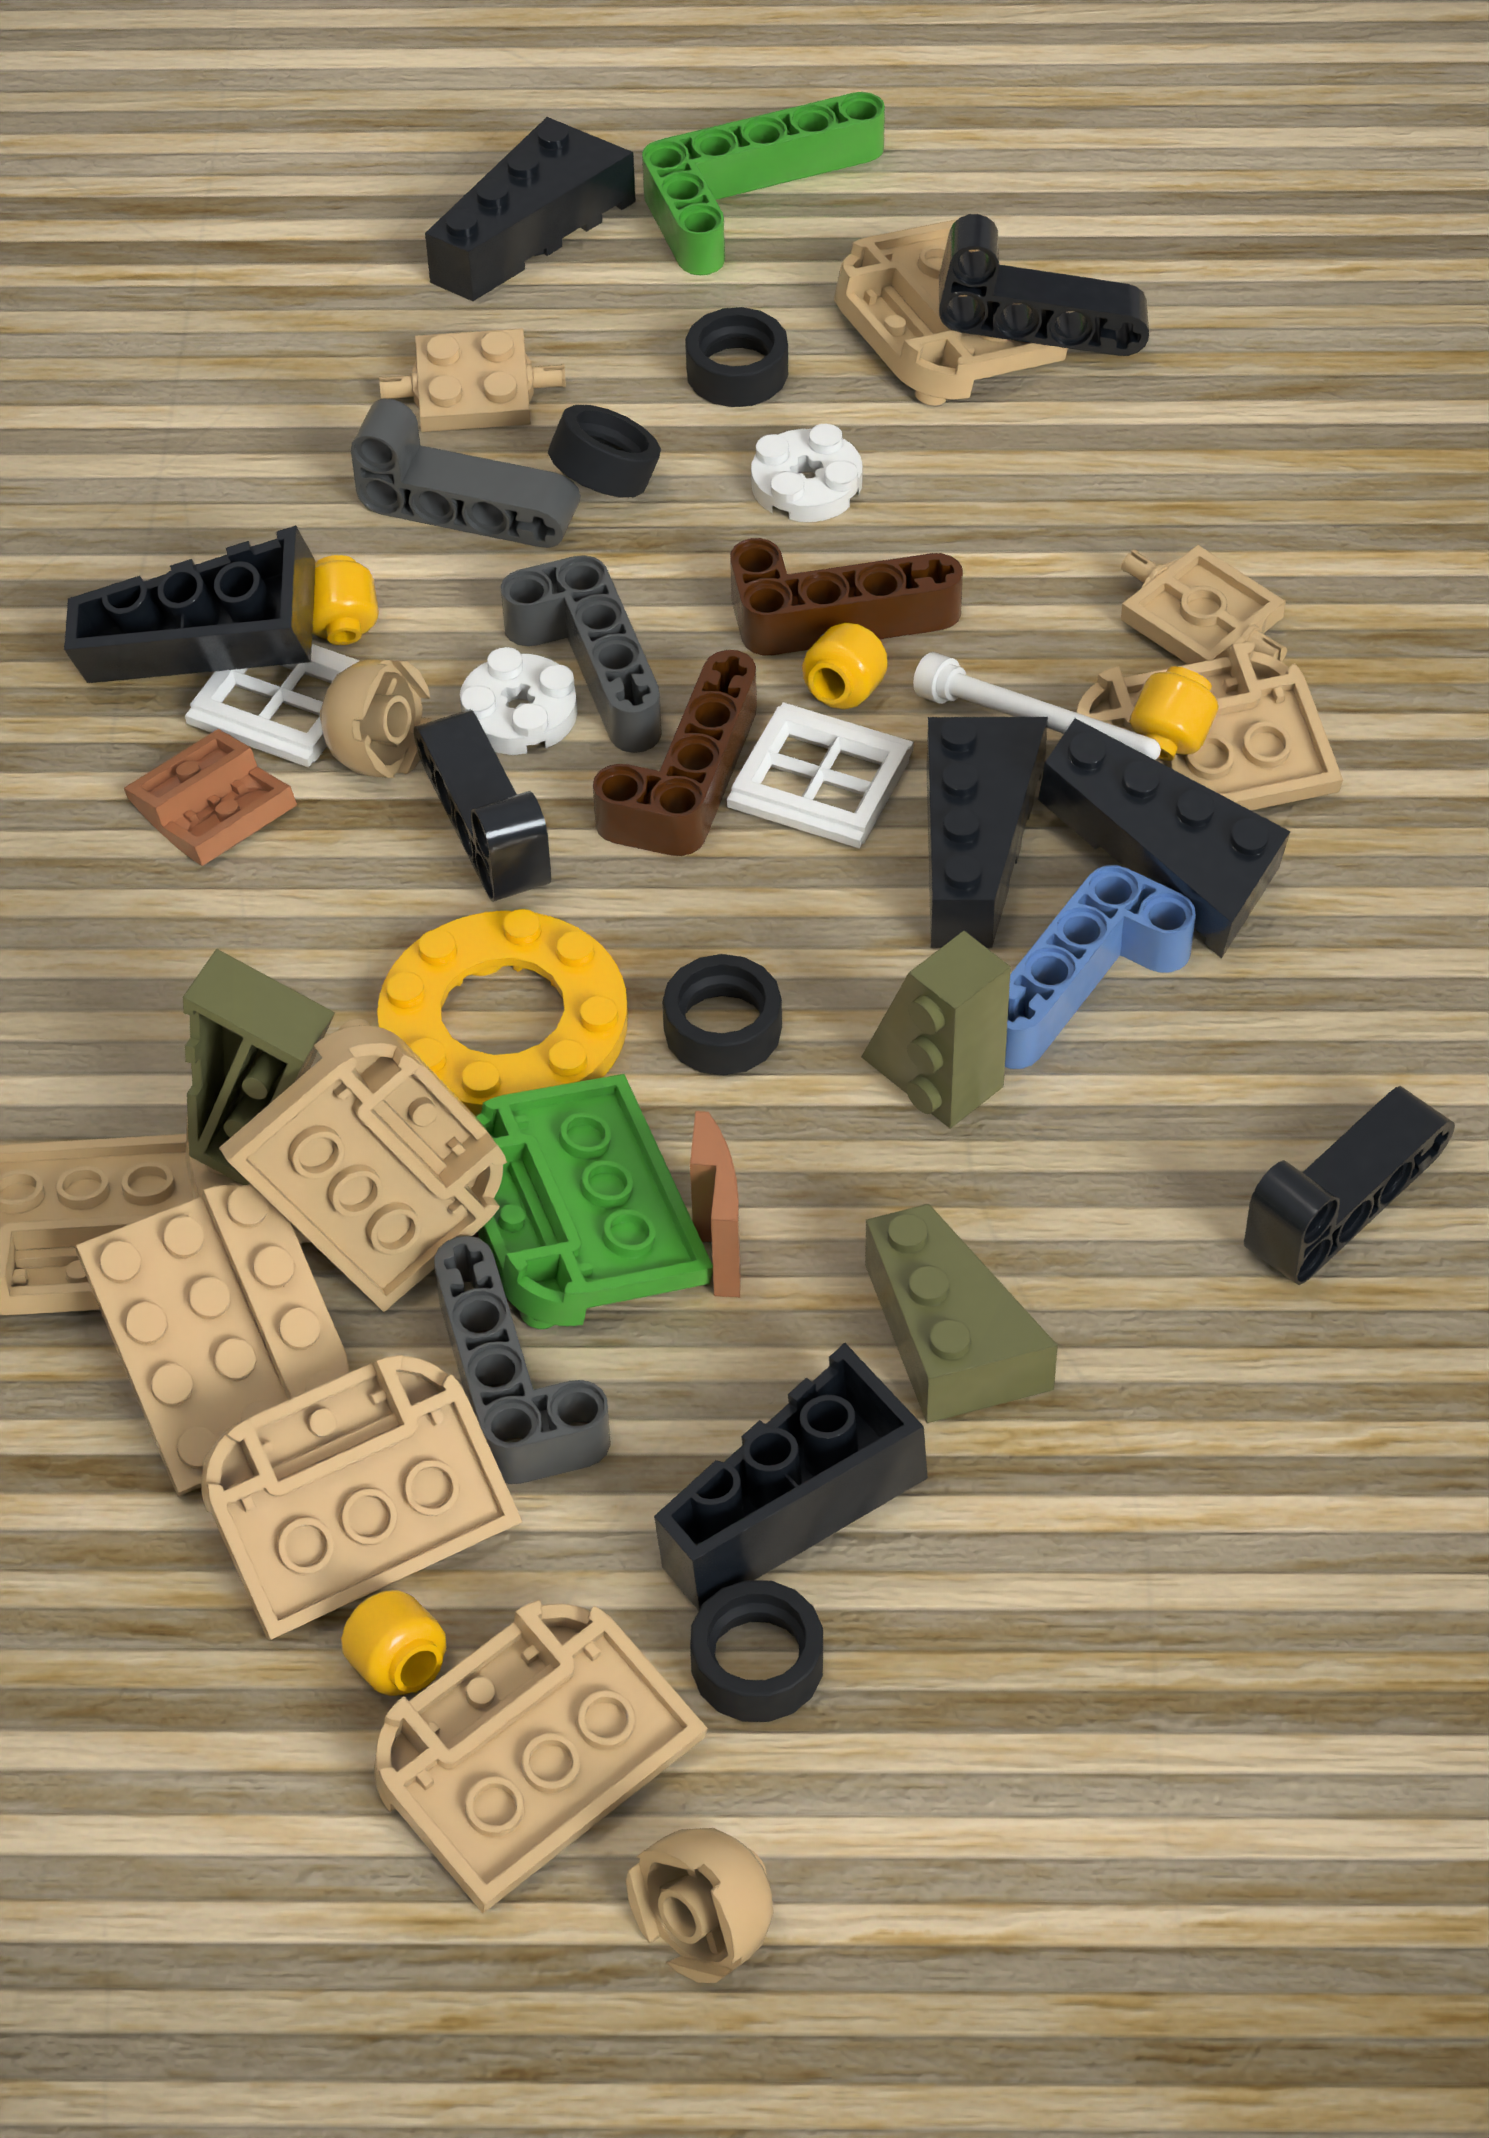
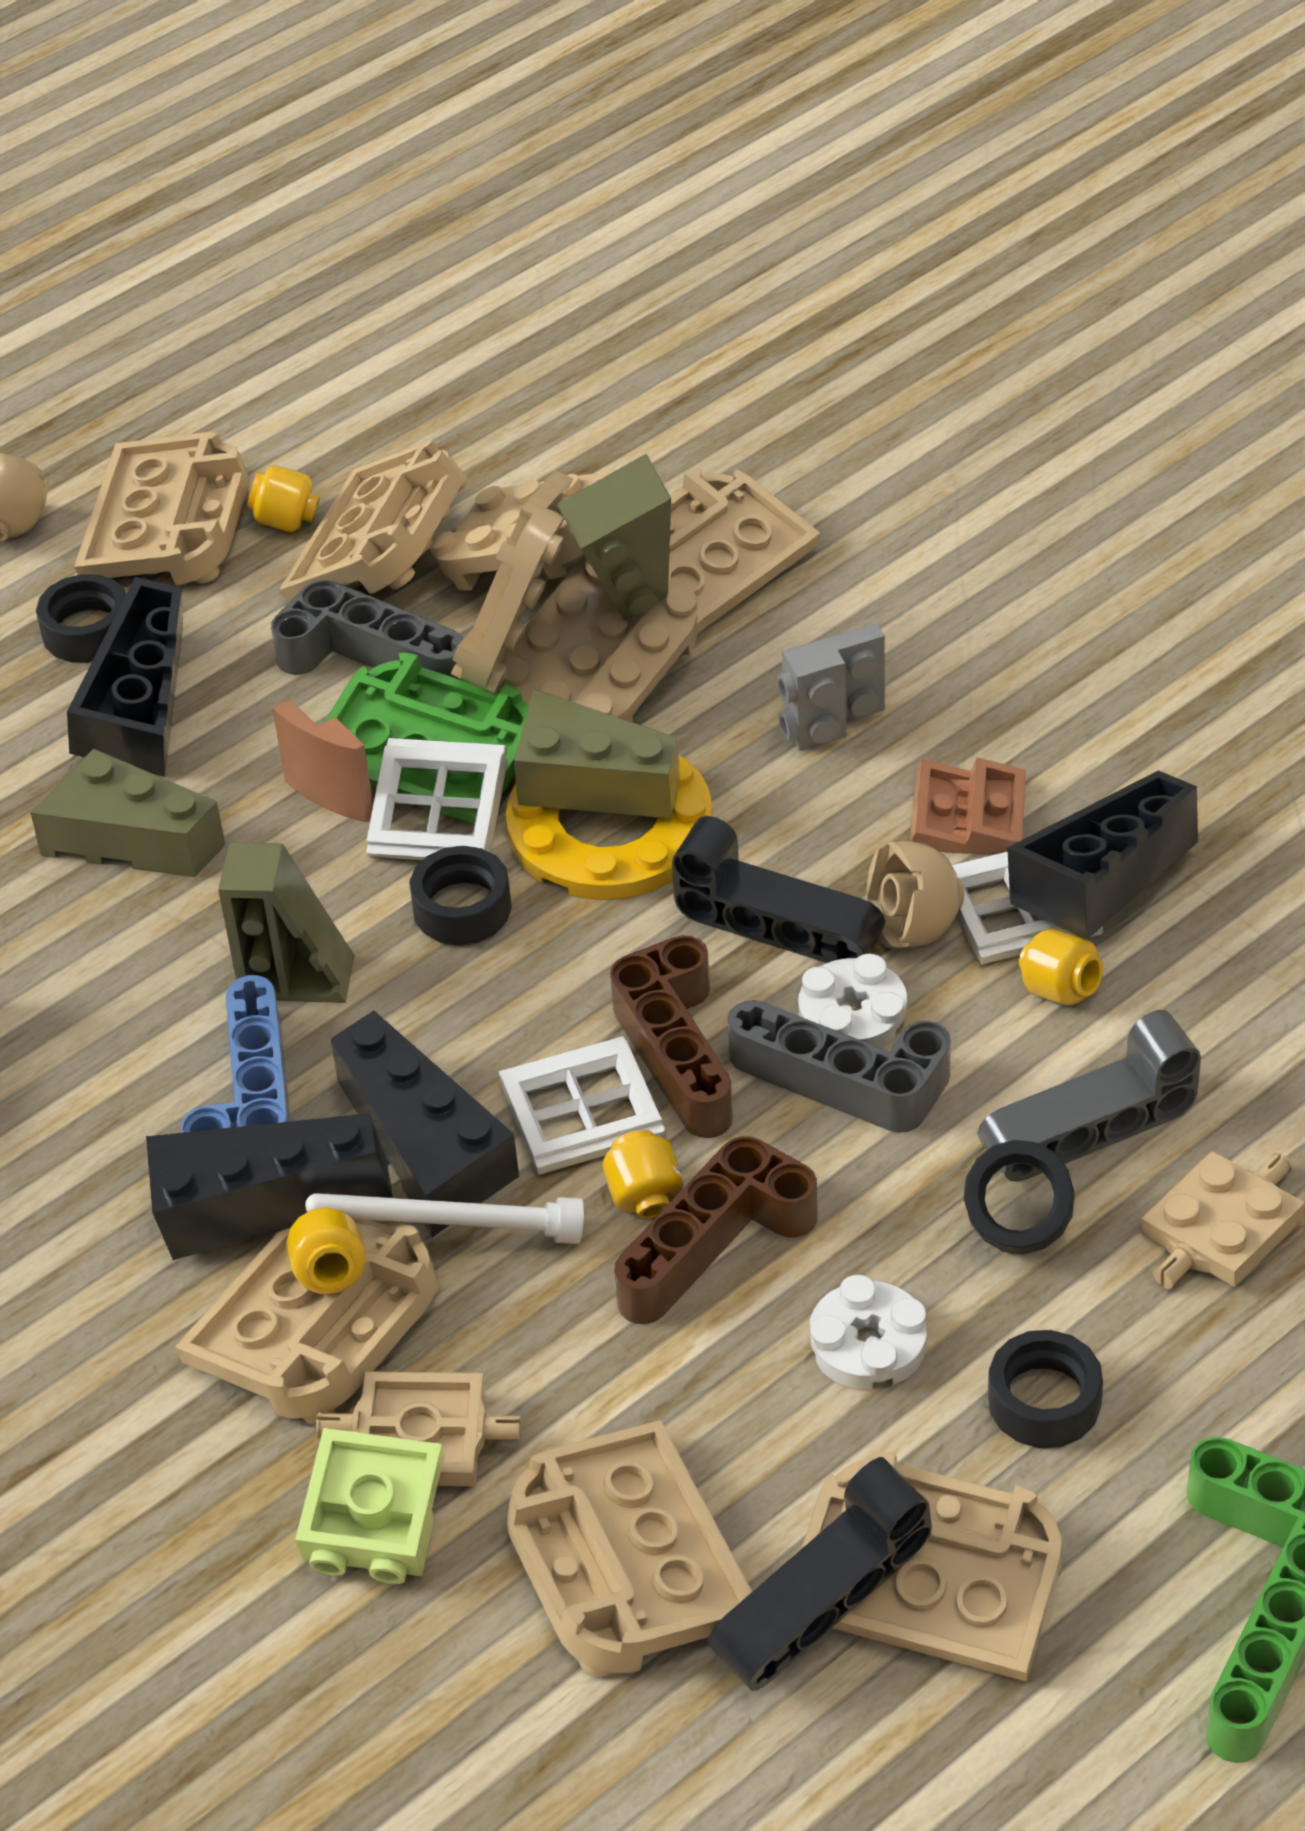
camera: 140 degrees right, 5 degrees down
(174, 933) = (830, 685): none -> light grey plate
(491, 1002) = (594, 761): none -> olive wedge
(610, 1122) = (444, 757): none -> white piece
(1137, 441) = (622, 1548): none -> tan plate
(1298, 558) = (370, 1505): none -> yellowish green plate

